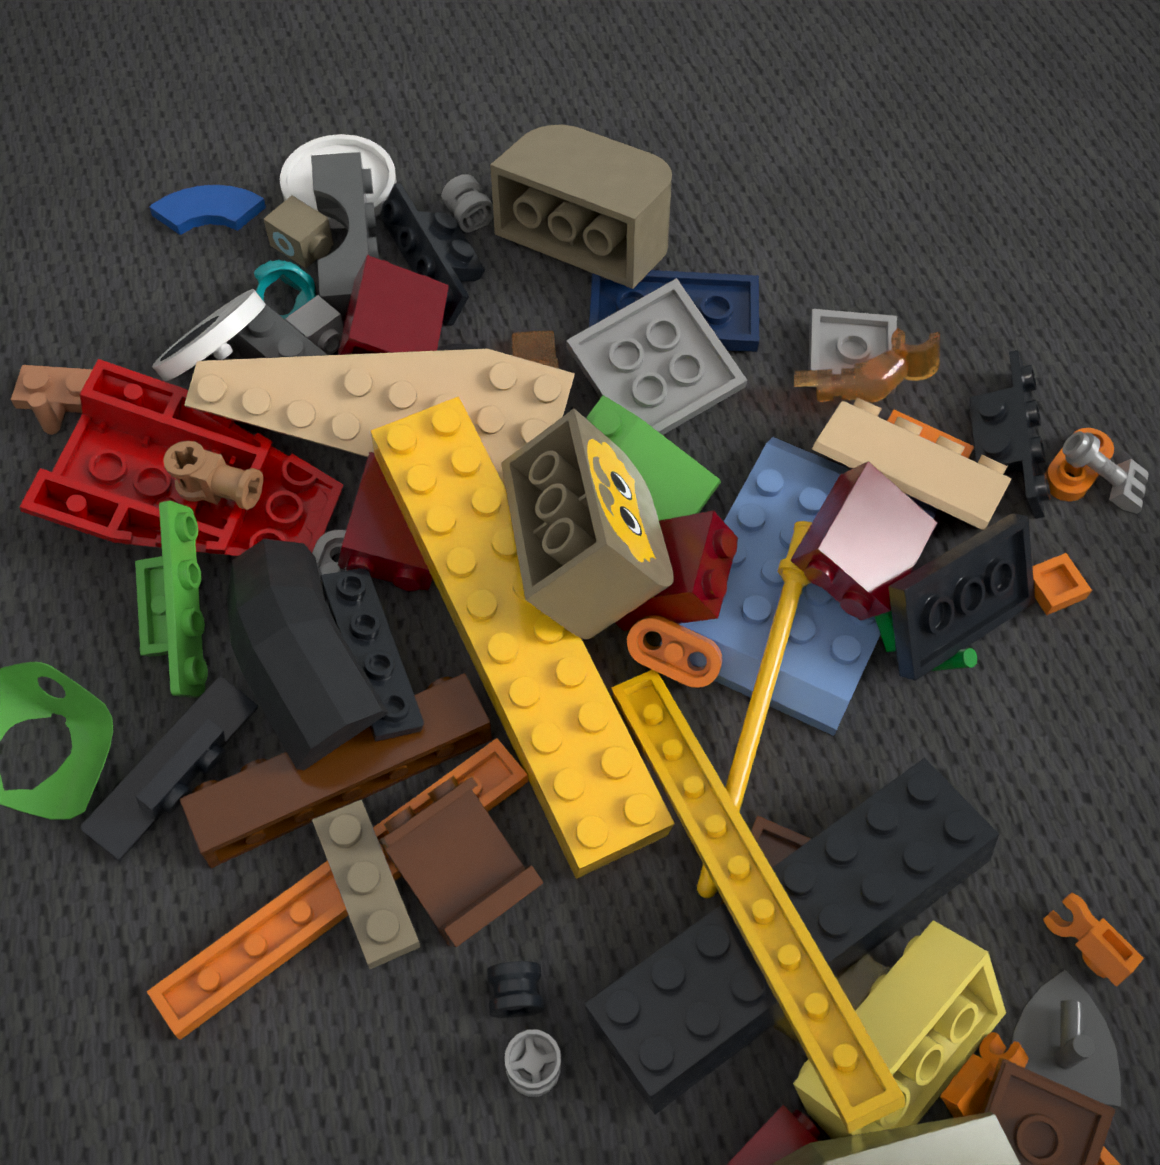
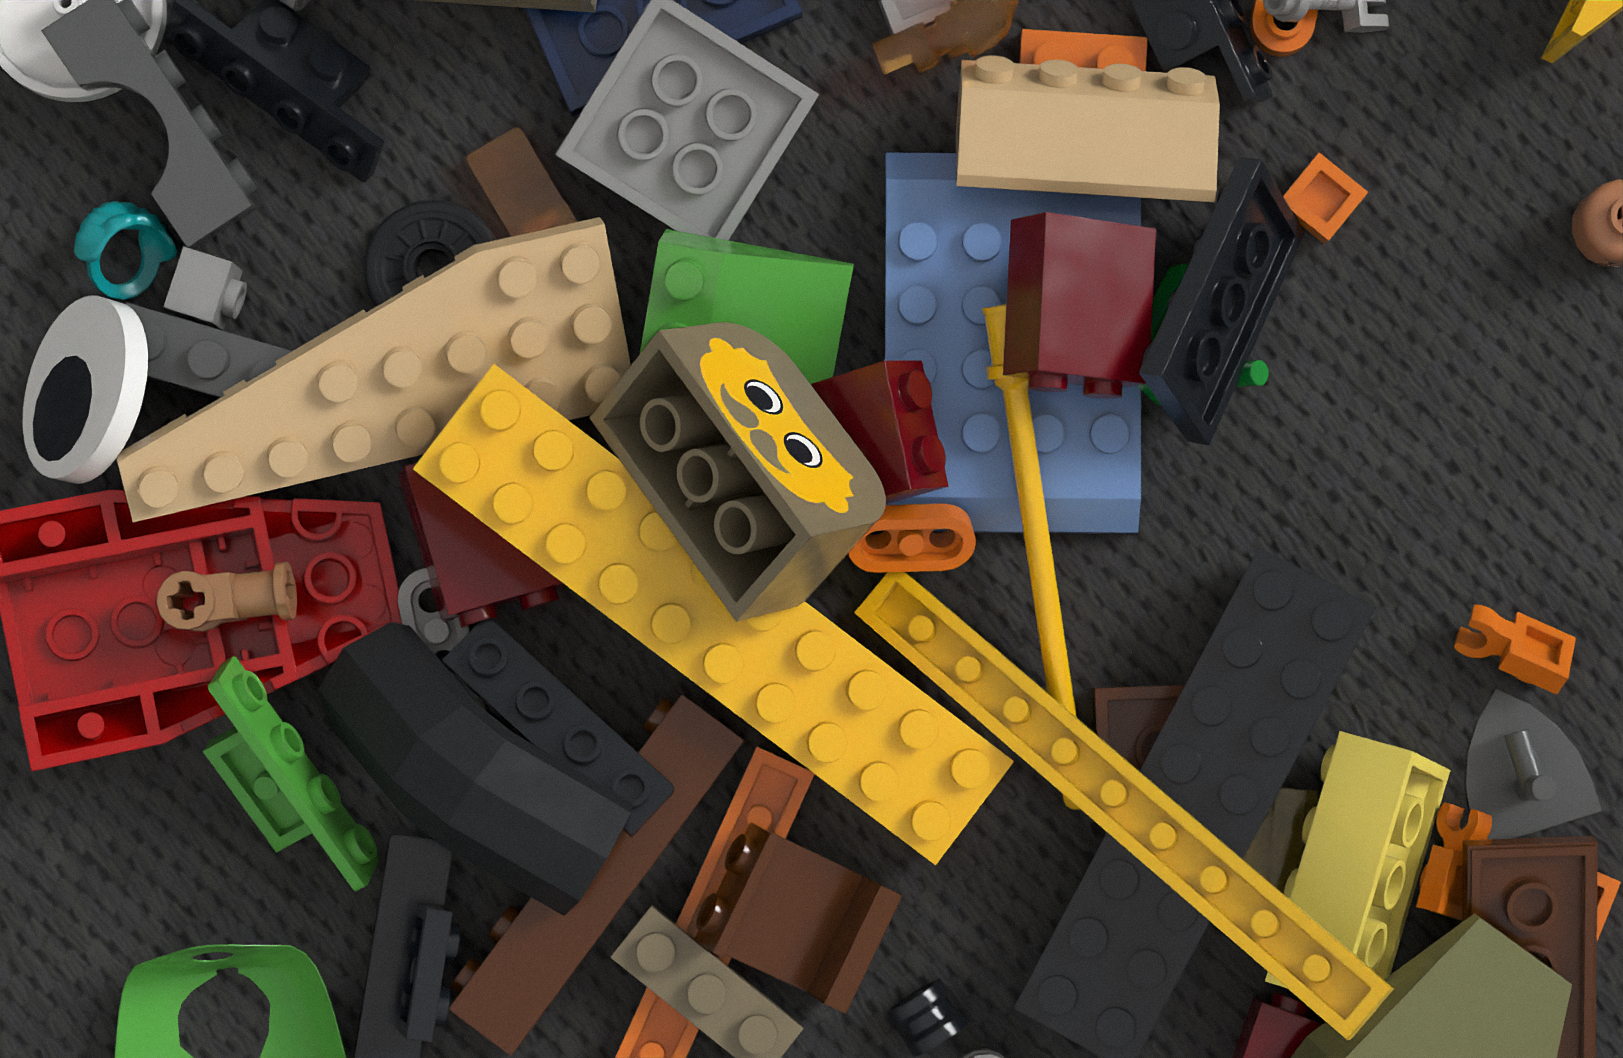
camera: 30 degrees left, 25 degrees up
(299, 231) = (83, 138): dark tan brick -> none
(392, 311) = (312, 243): dark red brick -> none

